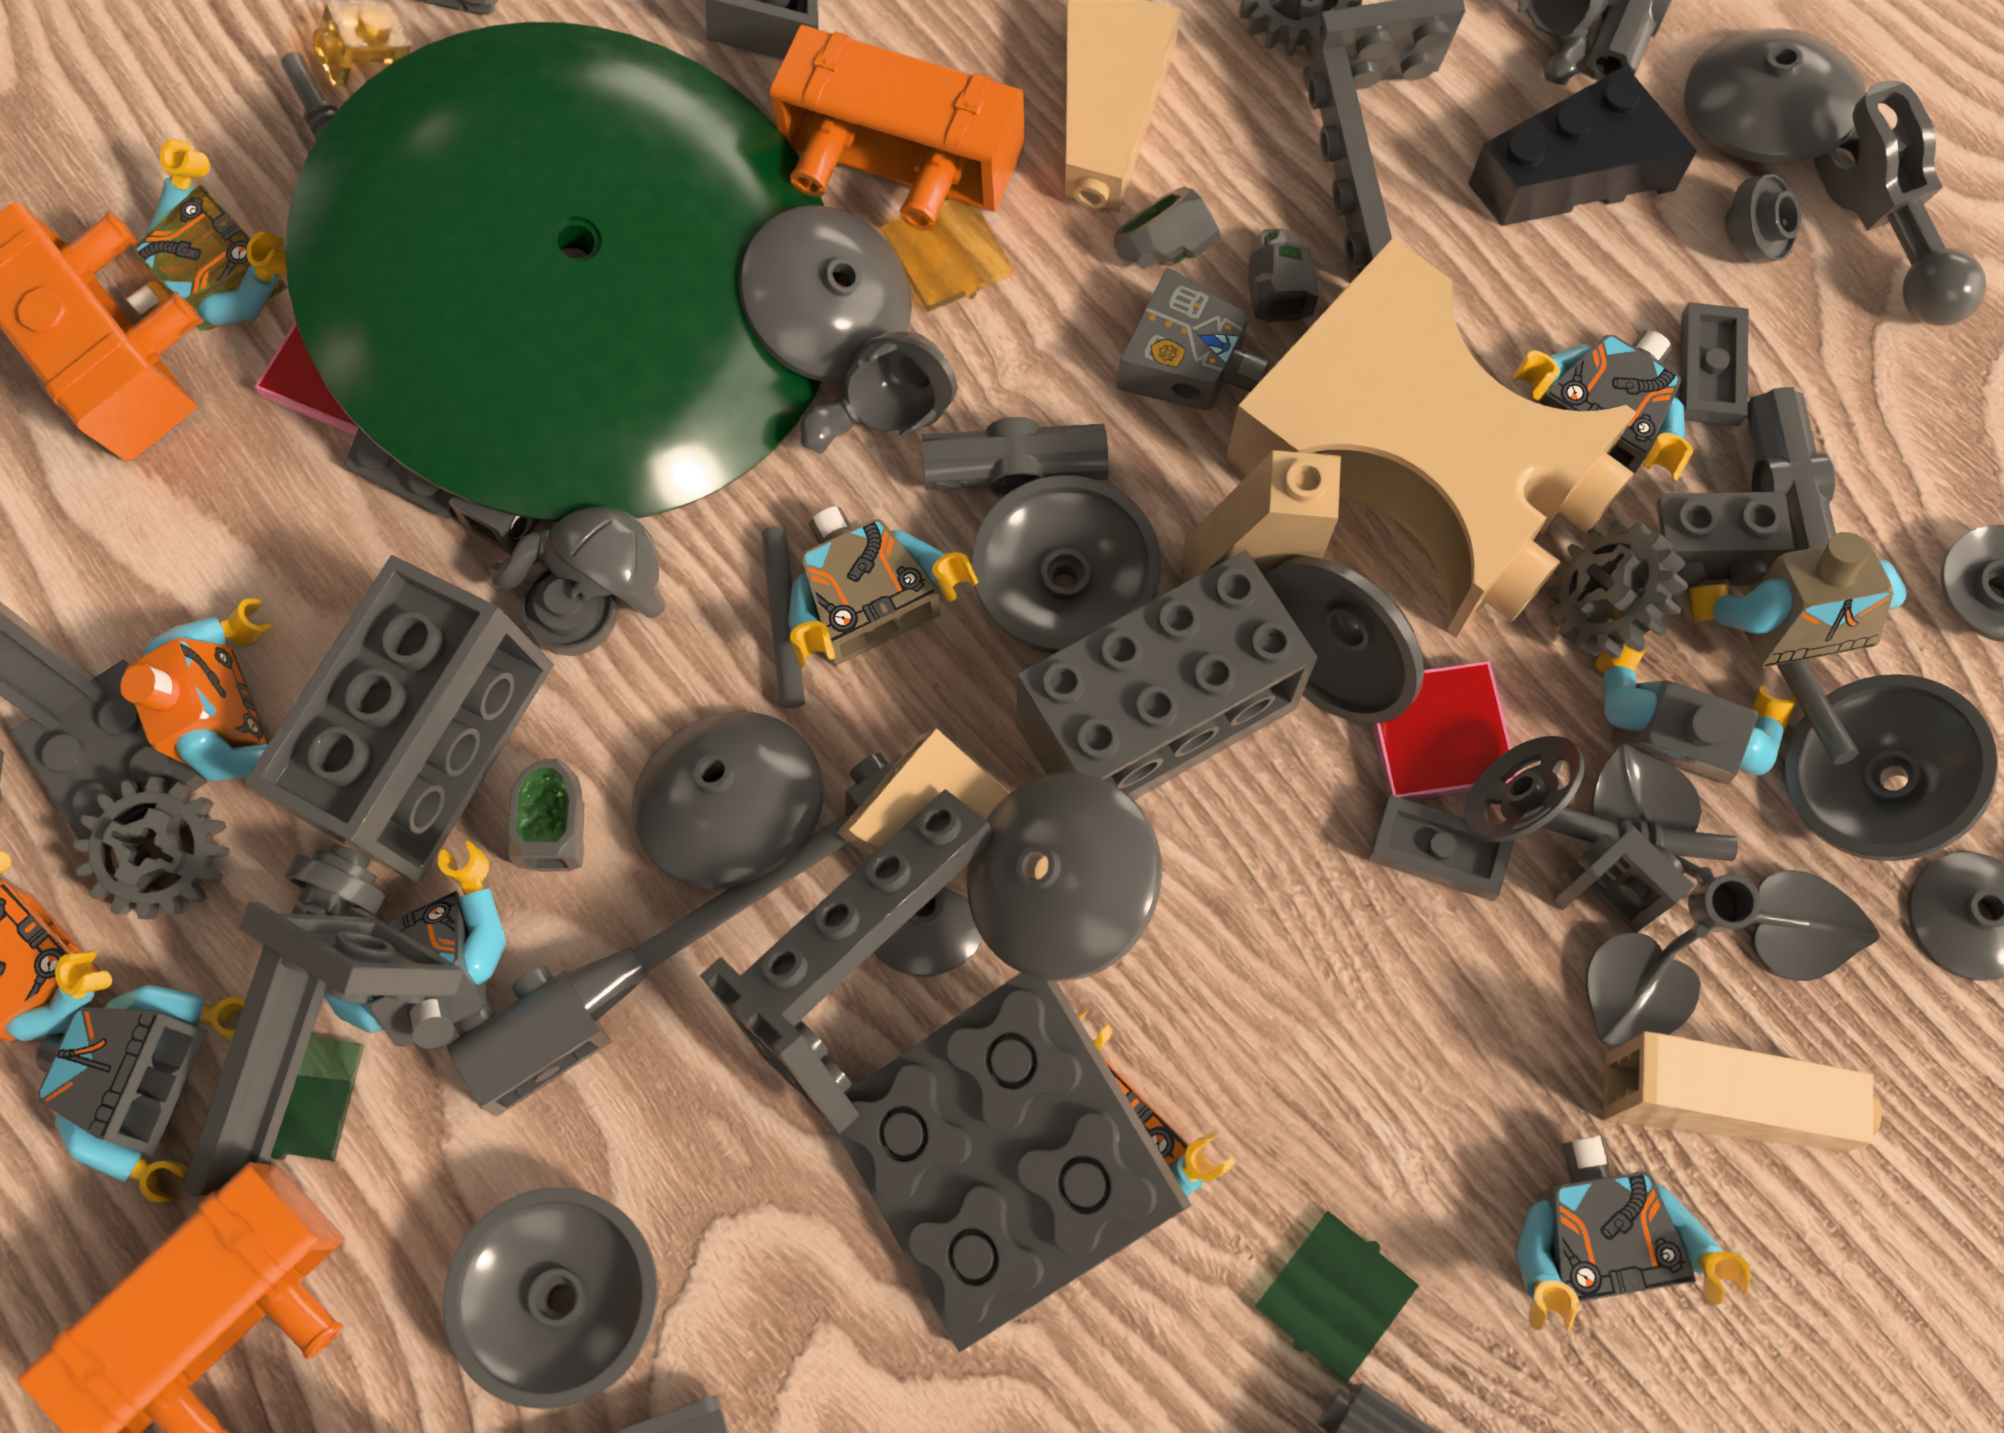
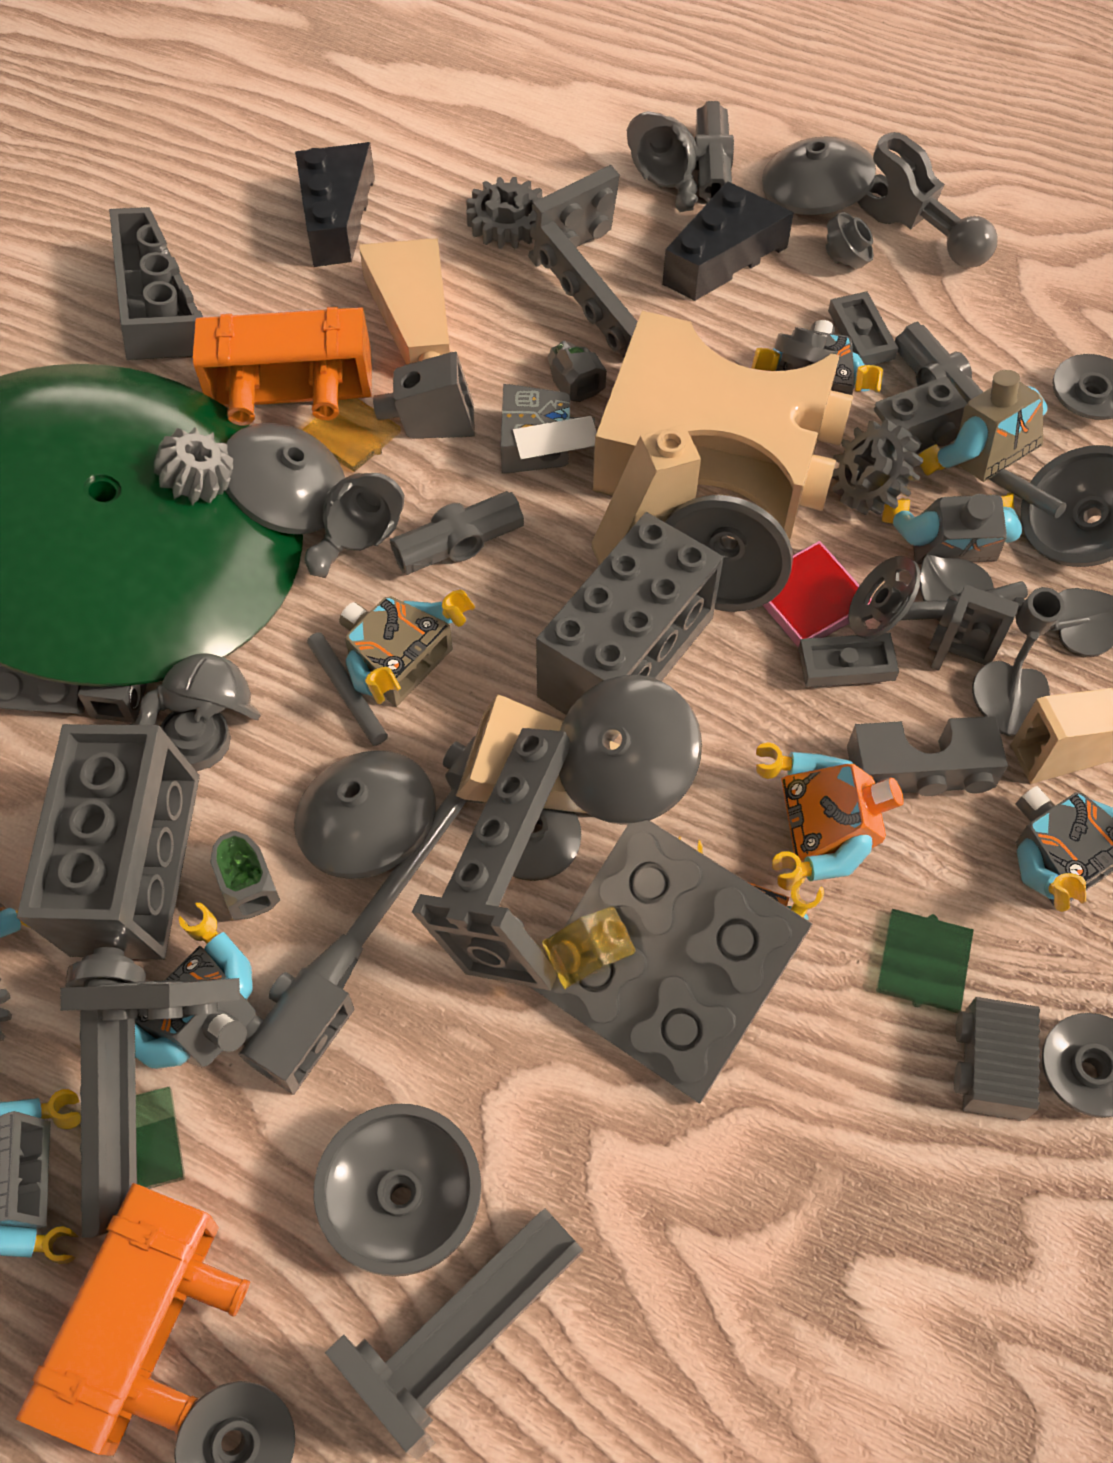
camera: 25 degrees left, 10 degrees down
(680, 250) = (193, 465): none -> light grey gear
(904, 1106) = (588, 946): none -> clear yellow bracket
(1056, 530) = (520, 561): dark grey dish -> none
(1063, 251) = (430, 399): none -> dark grey torso
(1168, 230) = (493, 365): dark grey rock -> none
(1198, 374) = (555, 437): none -> white sticker
(1301, 1058) = (830, 813): none -> torso
(1417, 1017) = (969, 757): none -> dark grey arch
(1596, 378) = (802, 348): none -> dark grey plate

